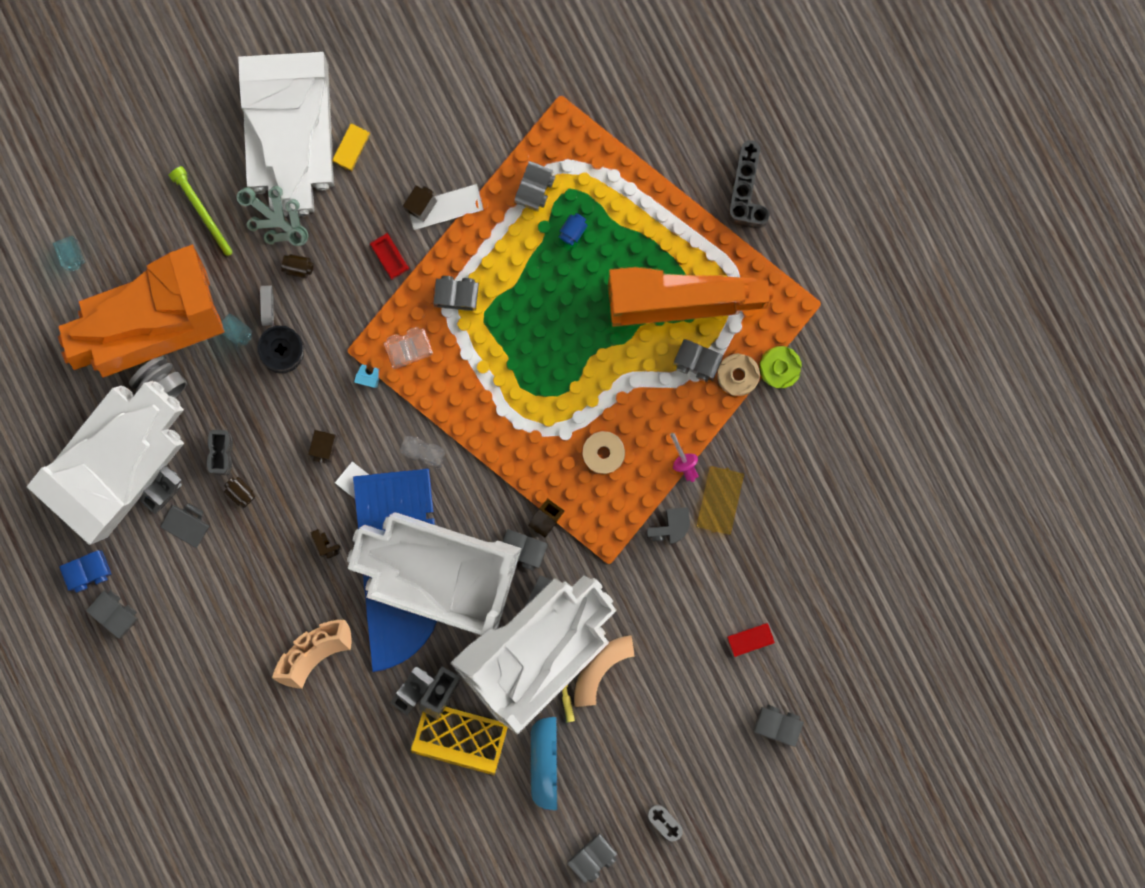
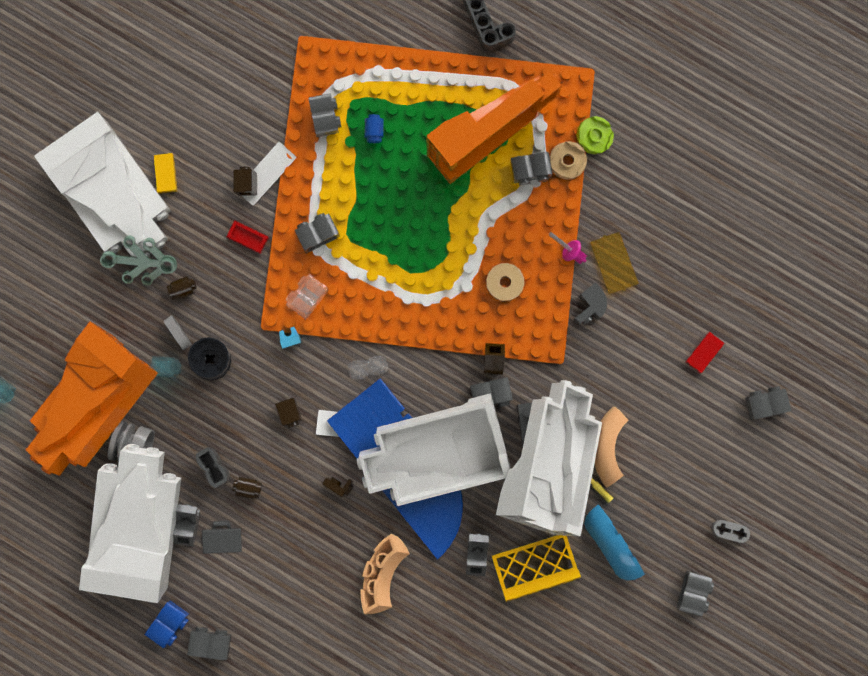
camera: 30 degrees left, 0 degrees up
(179, 177) = (47, 277): lime piece -> none
(439, 693) = (499, 543): dark grey brick -> none

